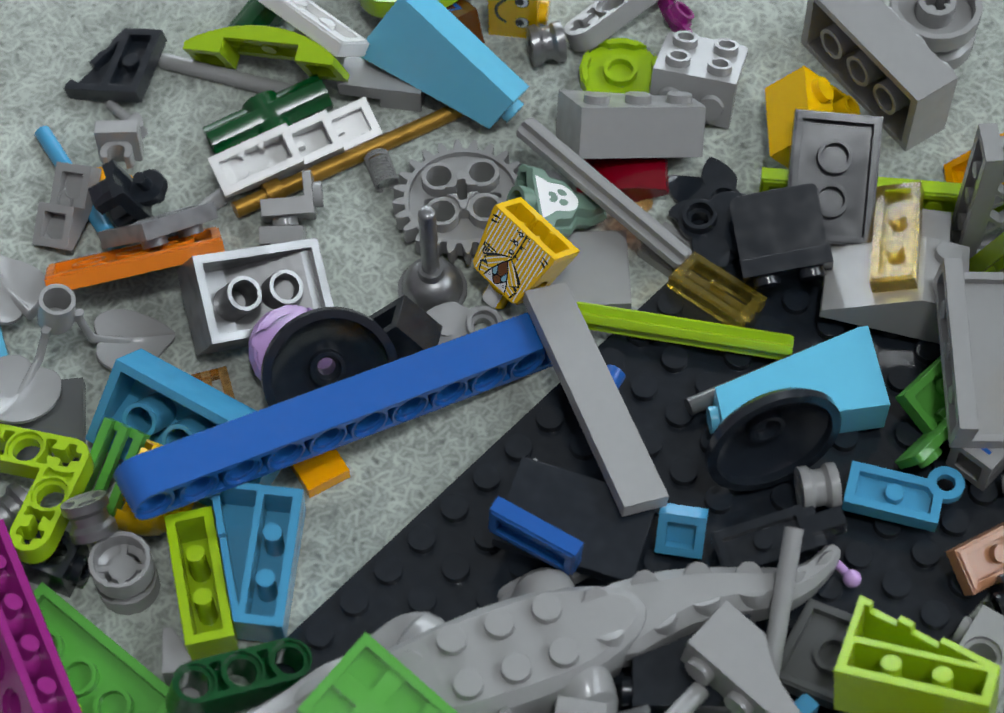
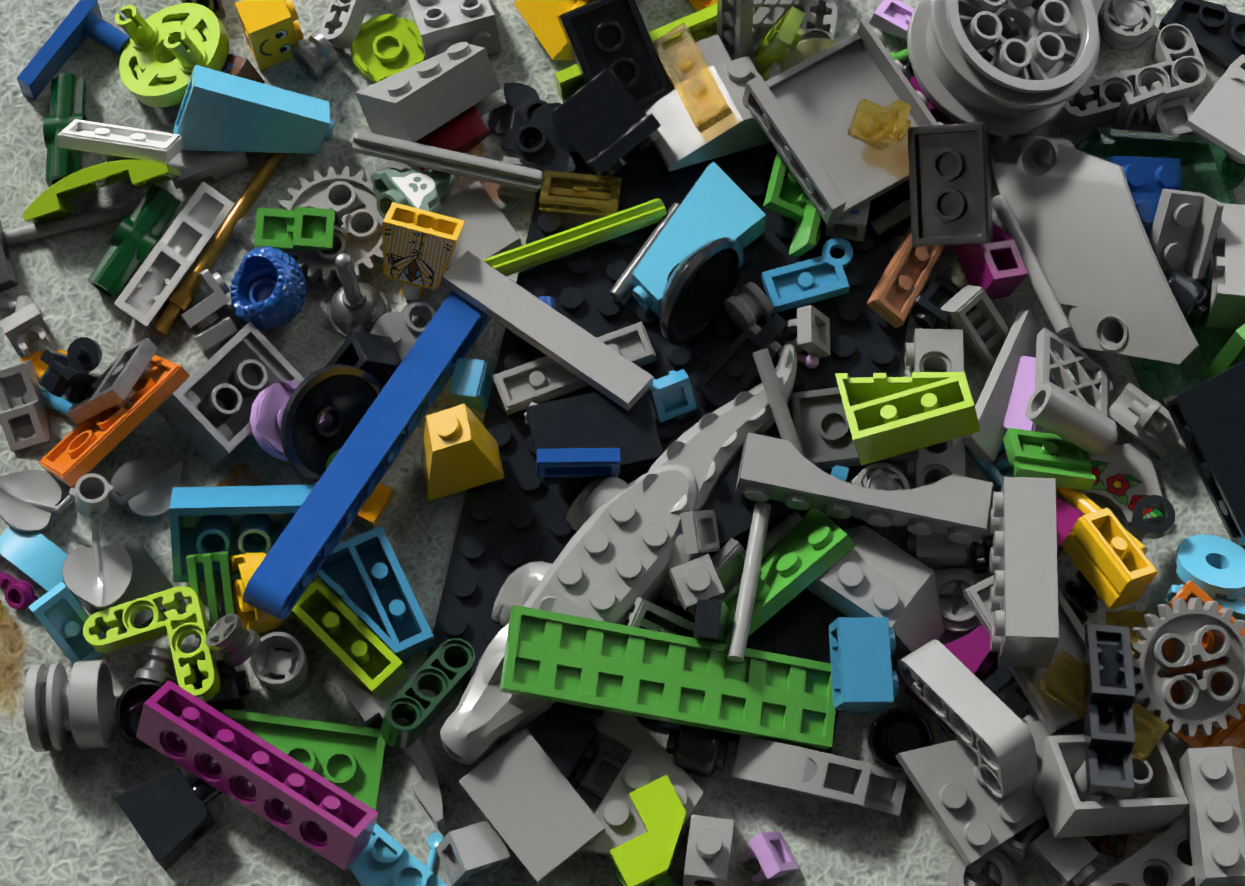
camera: 30 degrees left, 10 degrees up
(357, 220) = (268, 289): none -> blue hair
(415, 178) = (295, 229): none -> bright green slope
(429, 464) = (457, 453): none -> yellow slope
(492, 411) = (472, 382): none -> dark azure slope
(567, 448) = (547, 379): none -> light grey tile
(615, 677) = (700, 531): none -> light grey tile
(869, 547) = (811, 330): none -> light grey tile

